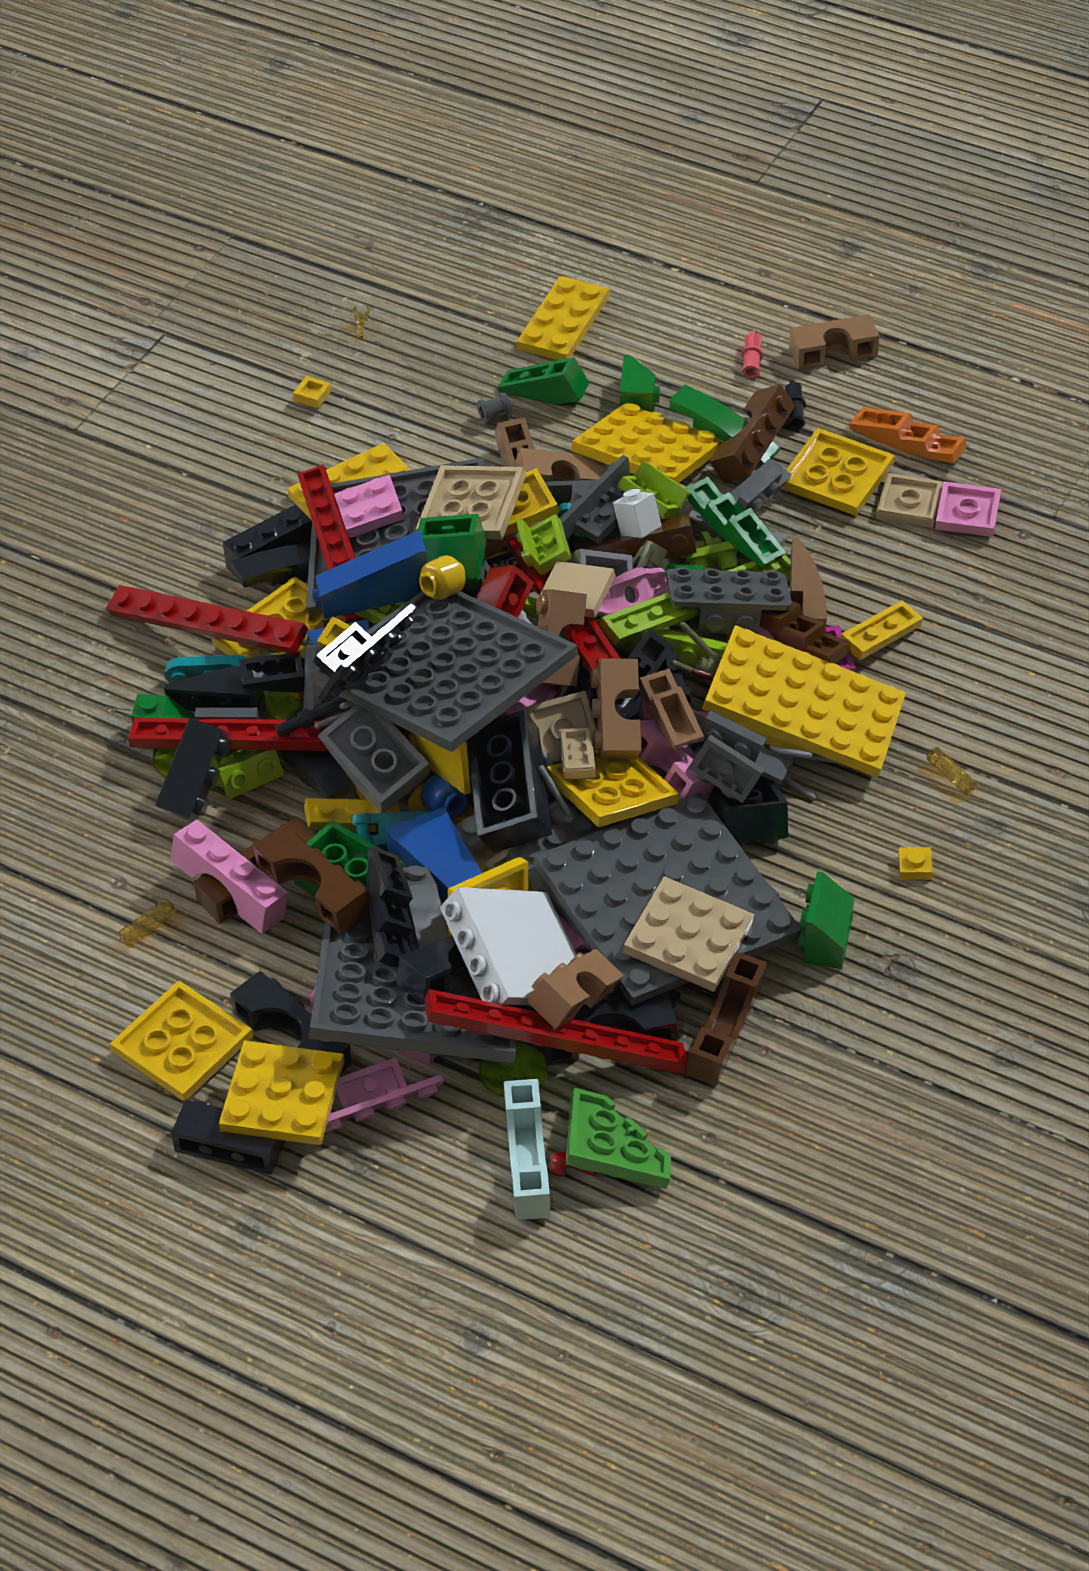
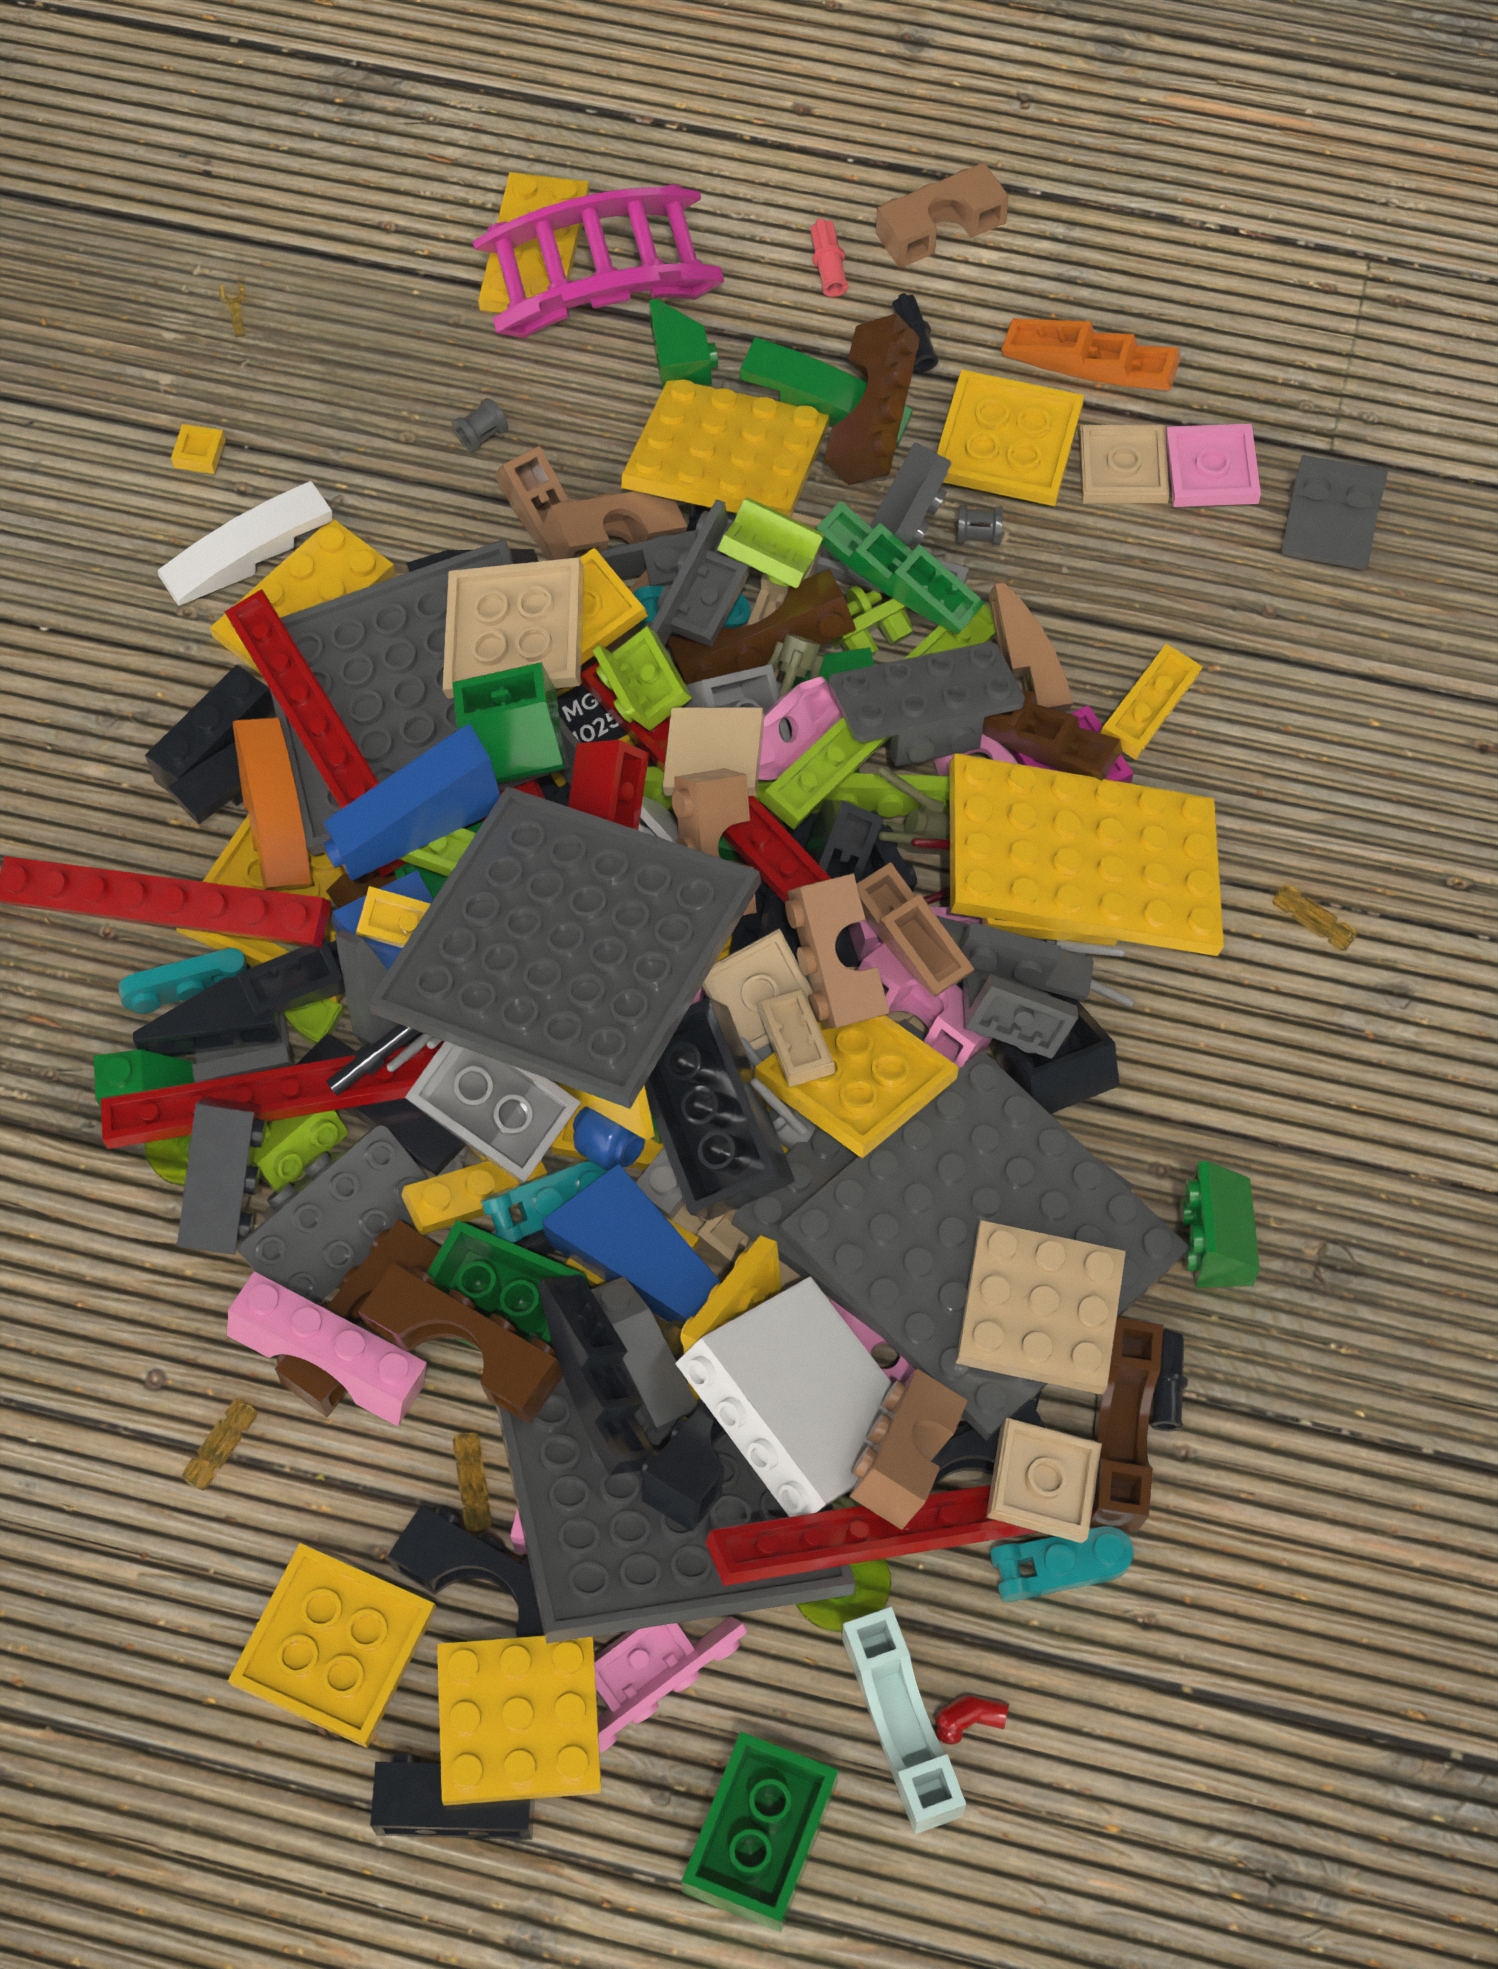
camera: 15 degrees left, 15 degrees up
(260, 808) = (332, 1215): none -> dark grey bracket
(292, 576) = (272, 804): none -> orange slope
(298, 971) = (472, 1481): none -> clear yellow axle
(323, 444) = (236, 547): none -> white slope
(354, 649) = (435, 965): black bracket -> none
(369, 506) = (354, 653): bright pink plate -> none
(415, 1189) = (760, 1831): none -> green brick
(442, 577) = (521, 790): yellow head -> none
(547, 382) = (547, 365): green slope -> none
(599, 340) = (608, 284): none -> dark pink fence
(610, 1144) = (1017, 1675): bright green plate -> none
(637, 513) = (760, 591): white brick -> none
(660, 1032) = (1044, 1480): none -> tan tile
(662, 1092) = (1062, 1563): none -> teal plate
(765, 1007) = (1169, 1385): none -> black axle
(801, 515) = (991, 533): none -> dark grey bush
(915, 863) = (1307, 1086): yellow plate -> none
(1041, 546) = (1333, 512): none -> dark grey bracket

